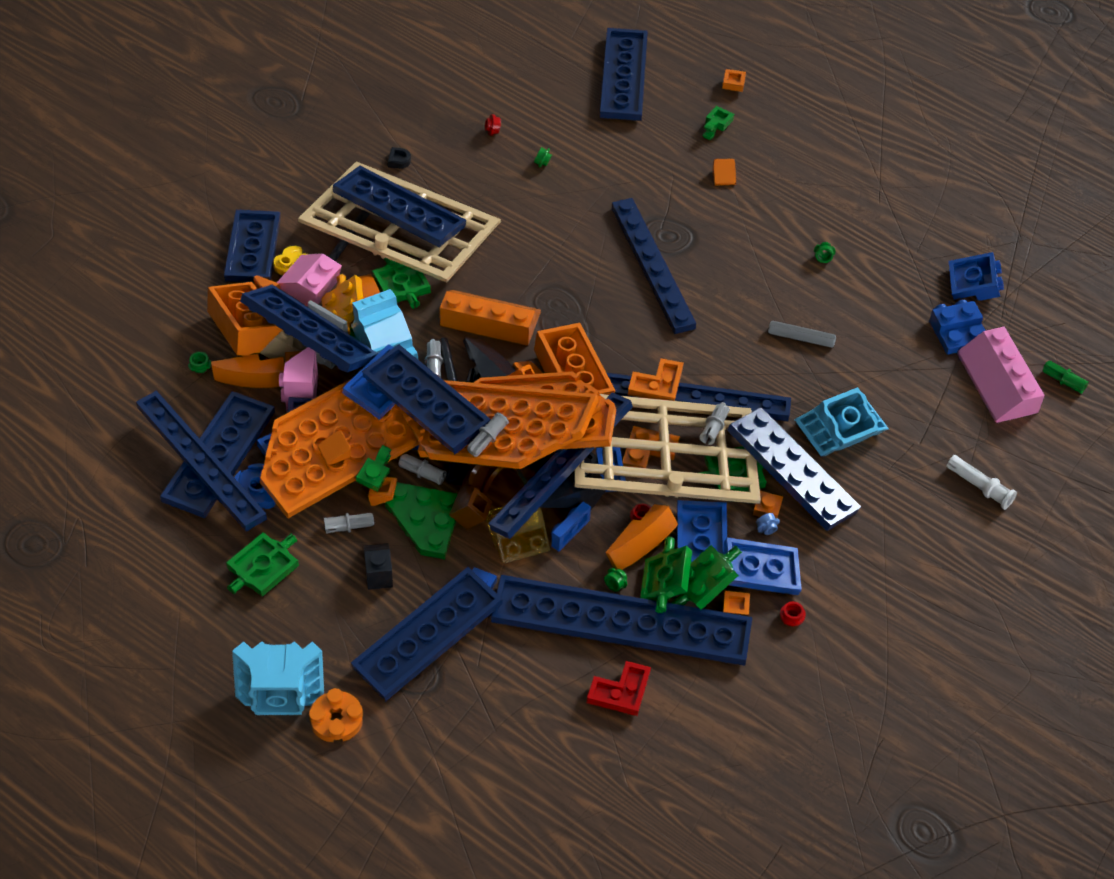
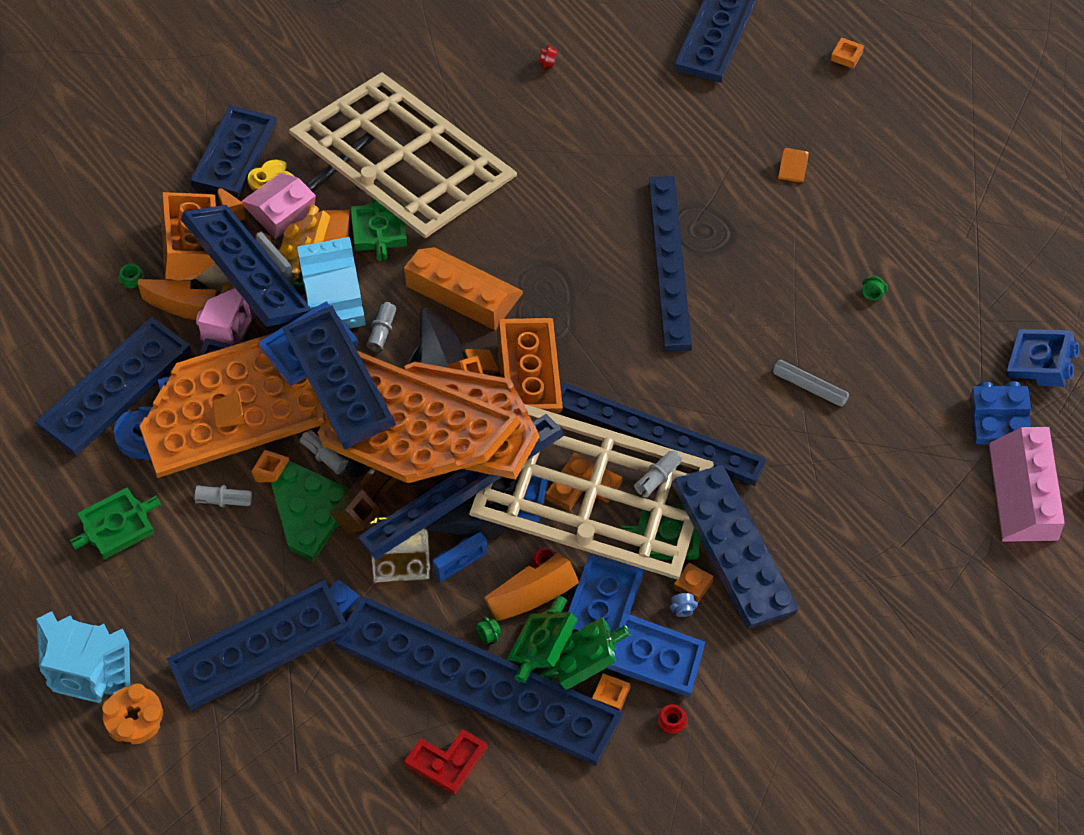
camera: 20 degrees right, 5 degrees up
(201, 461) = (88, 392): dark blue plate -> none
(375, 472) = (265, 446): green plate -> none
(378, 566) = (235, 553): black slope -> none
(399, 158) = (431, 77): black tile -> none
(399, 206) = (404, 137): dark blue plate -> none
(447, 359) = (397, 334): black bar -> none
(487, 434) = (384, 435): light grey axle -> none
(543, 157) = (590, 107): green plate -> none
(660, 387) = (617, 414): orange plate -> none
(717, 119) = (808, 98): green plate -> none
(841, 422) = (814, 502): medium azure slope -> none
(990, 487) = (961, 620): white pin -> none

